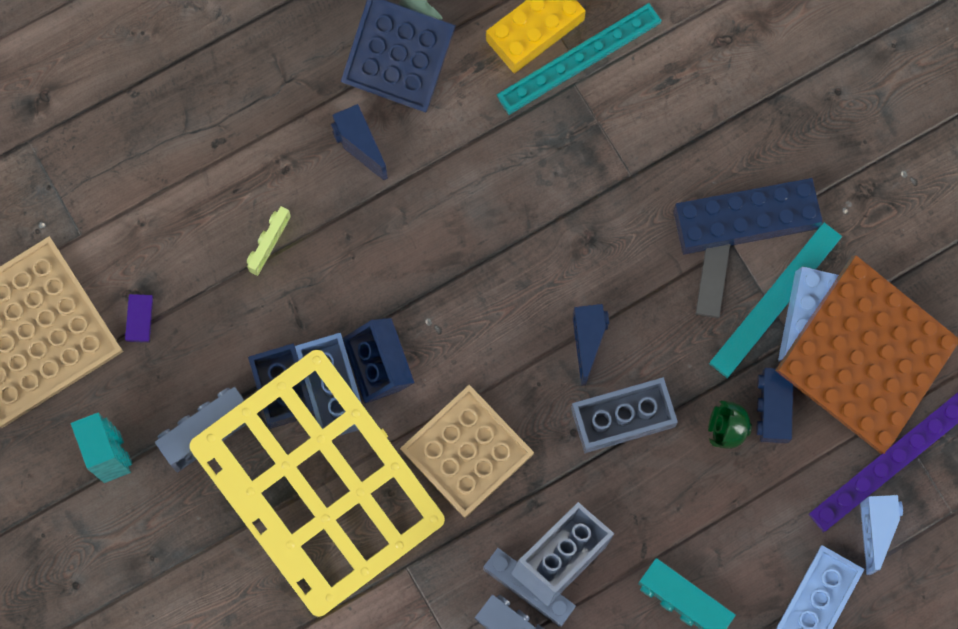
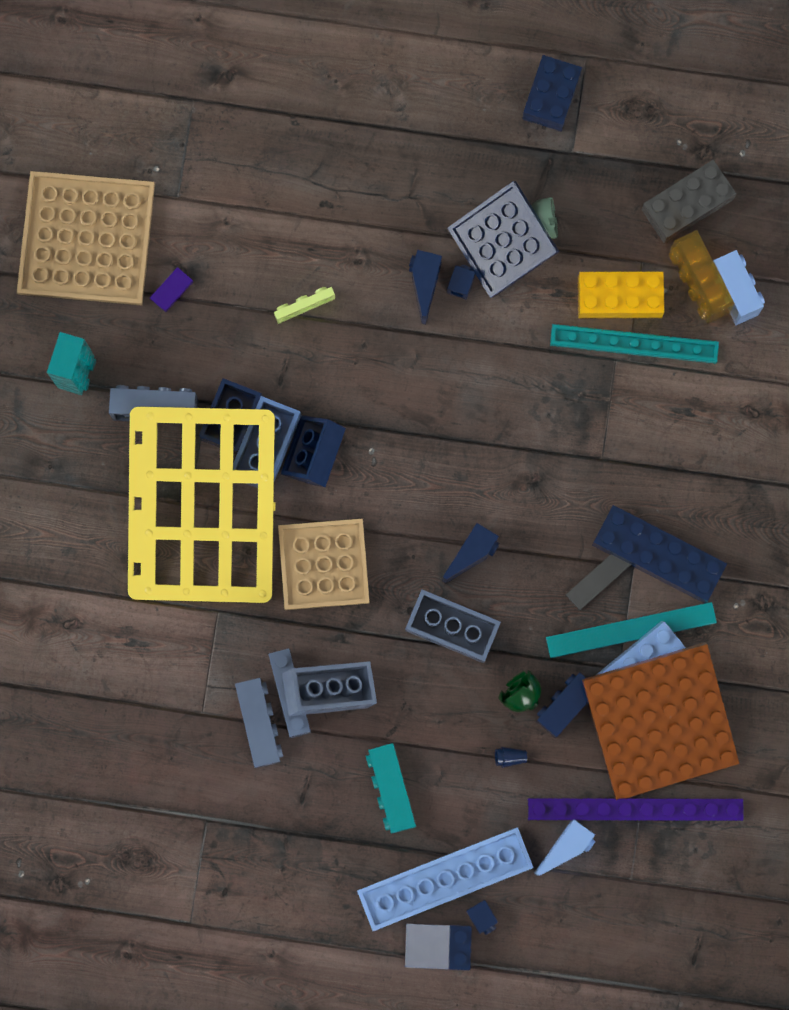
camera: 40 degrees right, 5 degrees up
(390, 117) = (461, 281): none -> dark blue brick
(763, 490) = (508, 757): none -> dark blue cone

